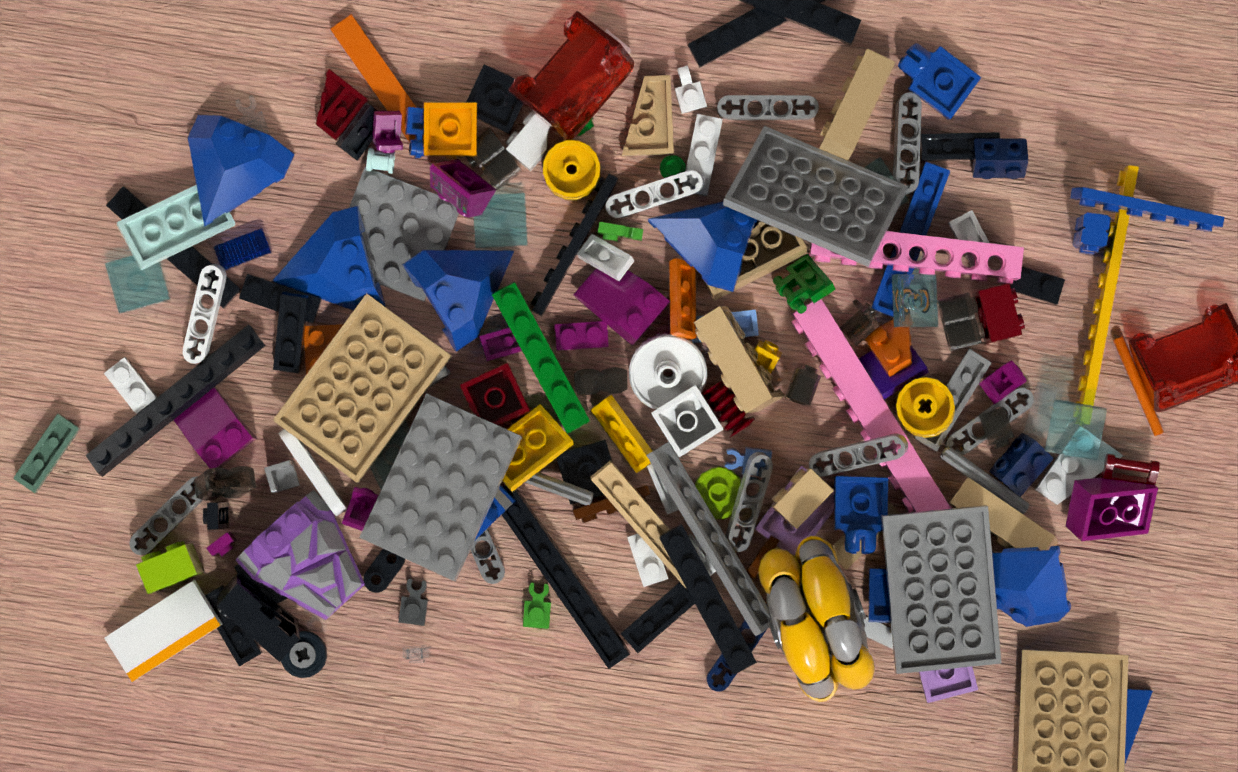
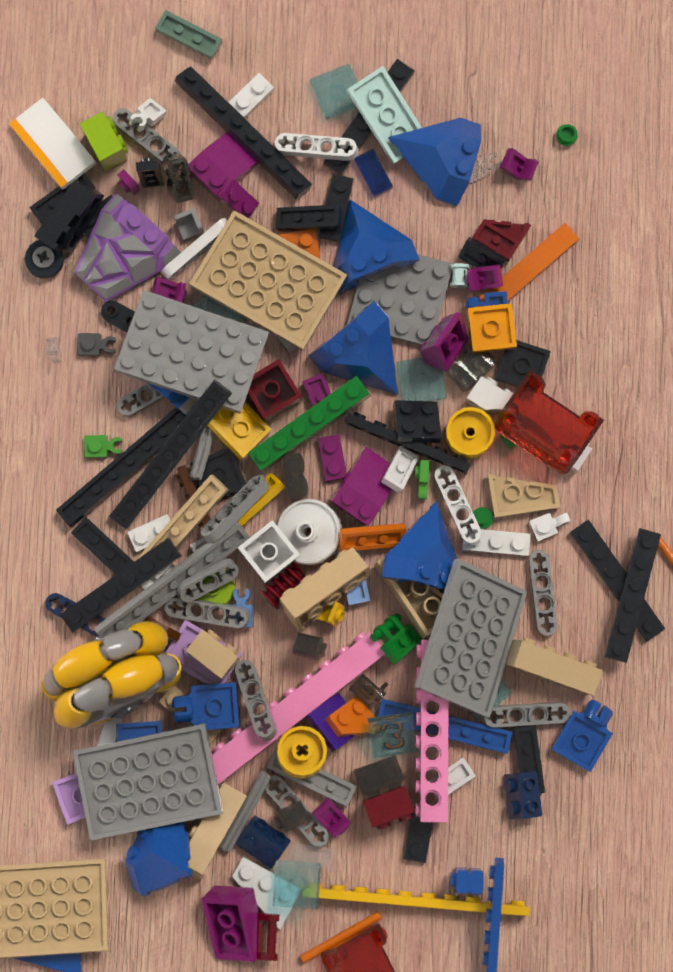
camera: 85 degrees right, 5 degrees down
(139, 512) = (148, 113): none -> white plate
(223, 13) = (566, 135): none -> green plate
(255, 74) = (518, 165): none -> magenta bracket
(257, 414) = (237, 197): none -> magenta plate
(551, 230) = (417, 421): none -> black plate
(560, 524) = (170, 454): none -> black plate
(607, 428) = (234, 509): none -> light grey beam
(710, 476) = (224, 578): none -> light grey beam

